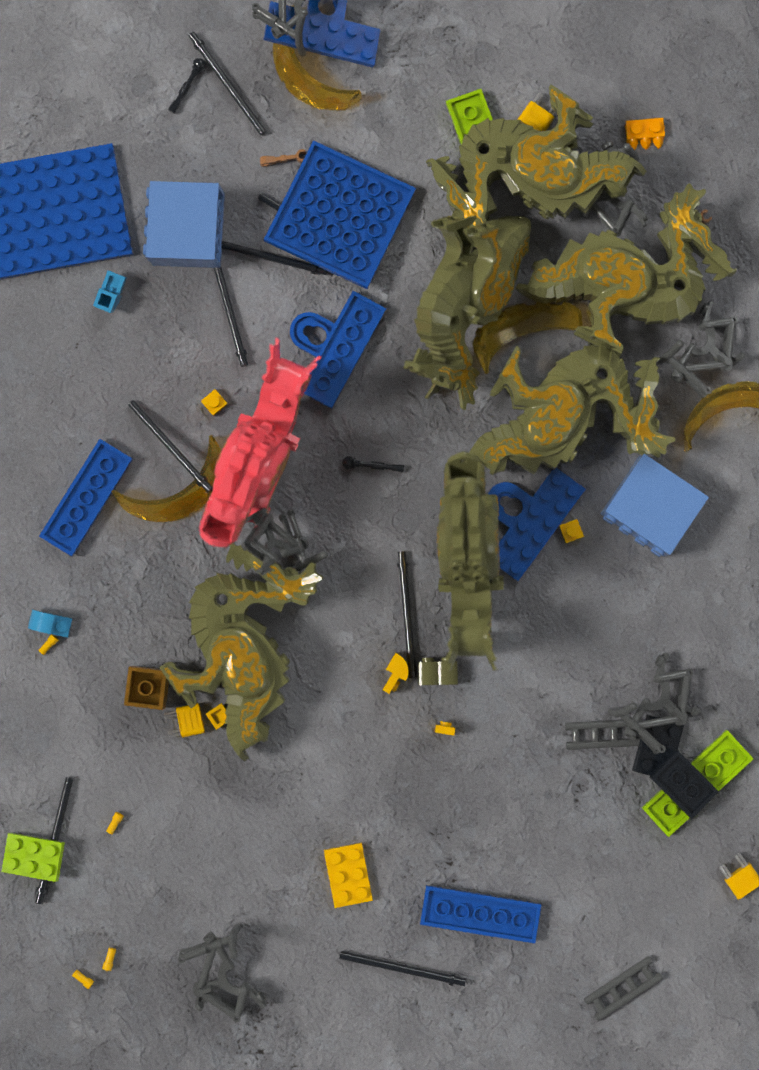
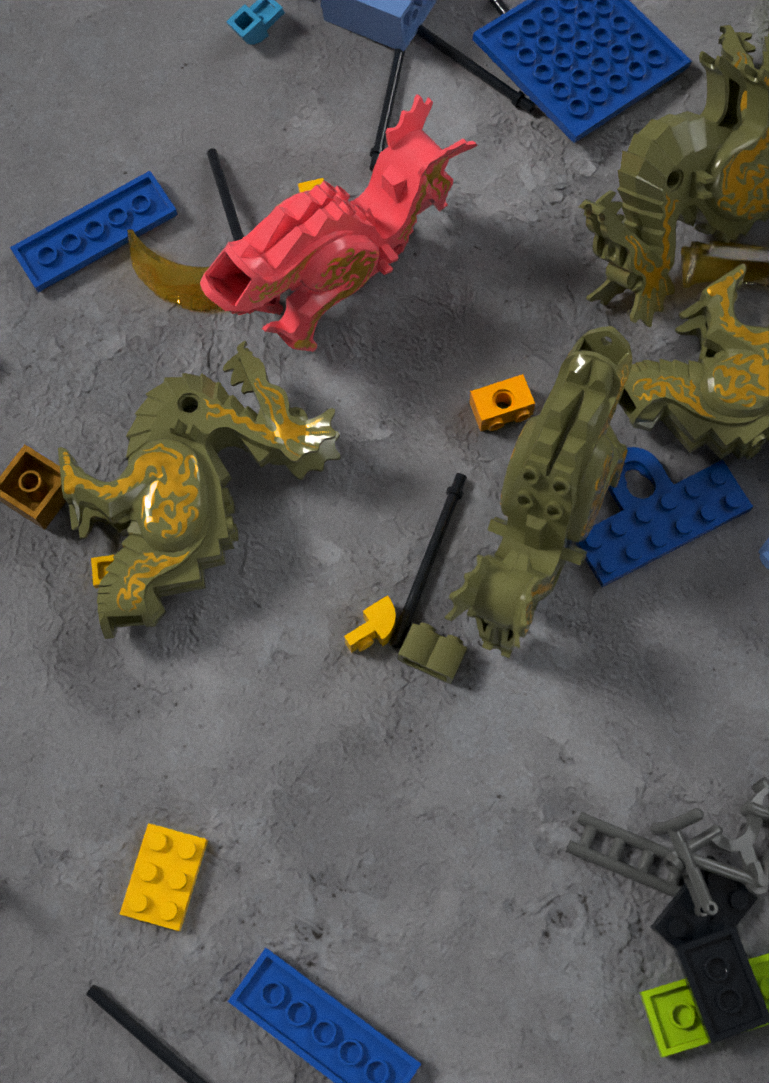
camera: 30 degrees right, 15 degrees down
(189, 721) = (65, 560): yellow piece -> none
(266, 525) = (299, 348): dark grey piece -> none
(342, 347) = (505, 200): blue plate -> none
(348, 462) = (450, 337): black piece -> none
(410, 483) = (511, 391): none -> light orange brick
(445, 728) = (405, 734): yellow plate -> none
(571, 531) = (707, 554): yellow plate -> none

